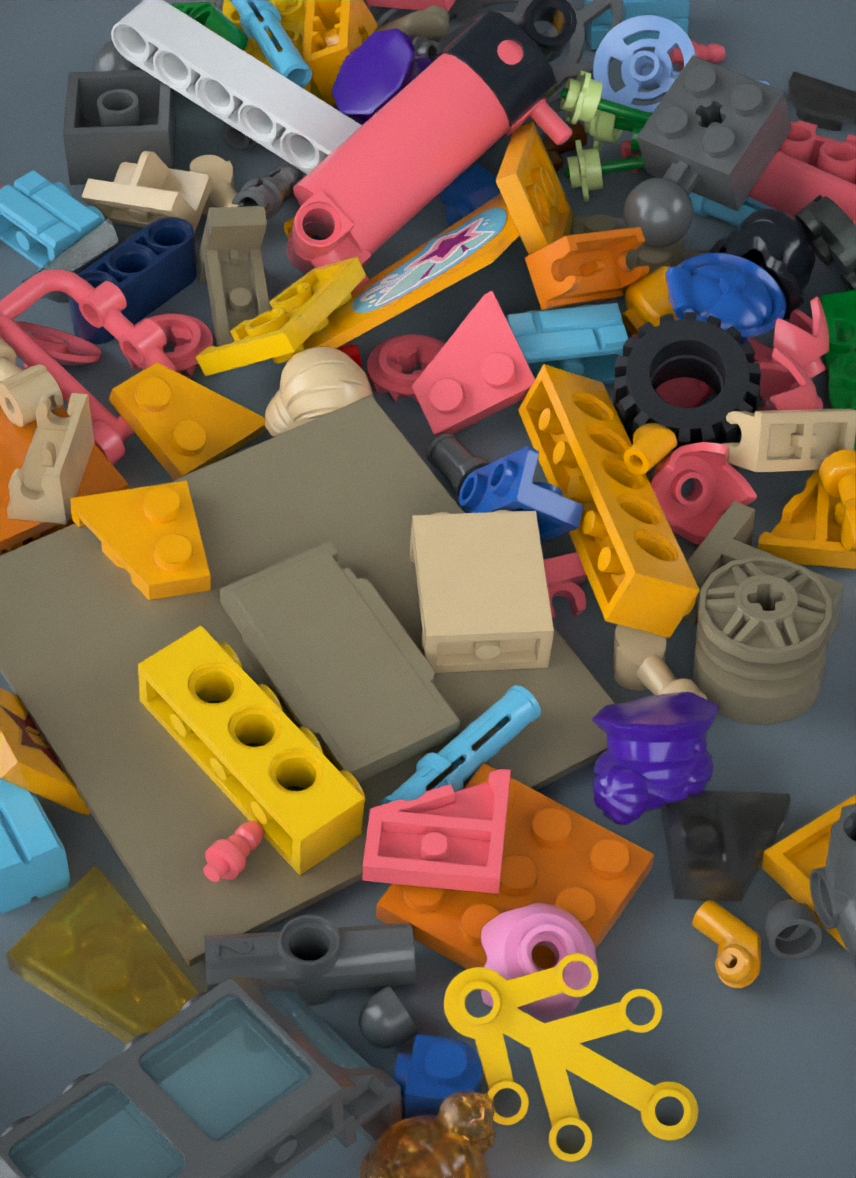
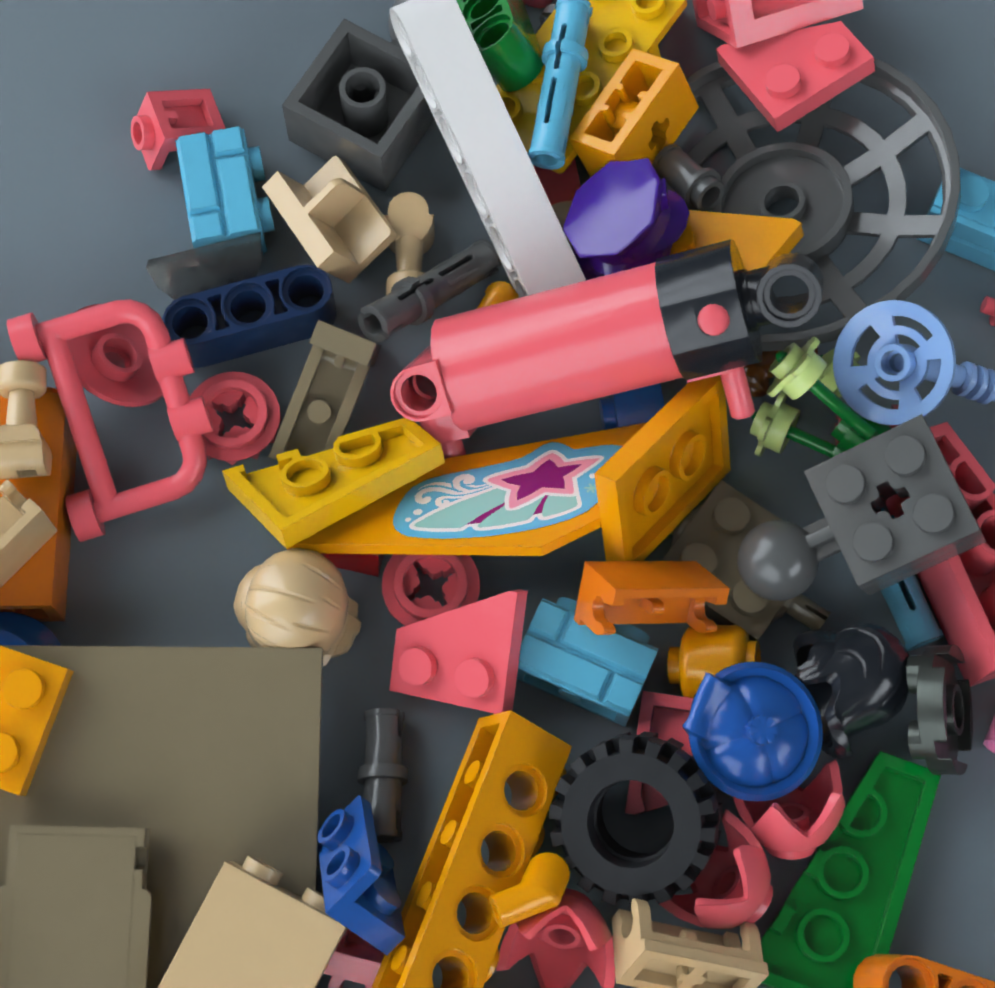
camera: 30 degrees right, 25 degrees up
(183, 420) = (170, 536): light orange wing -> none
(430, 23) = (725, 144): dark tan arm -> none

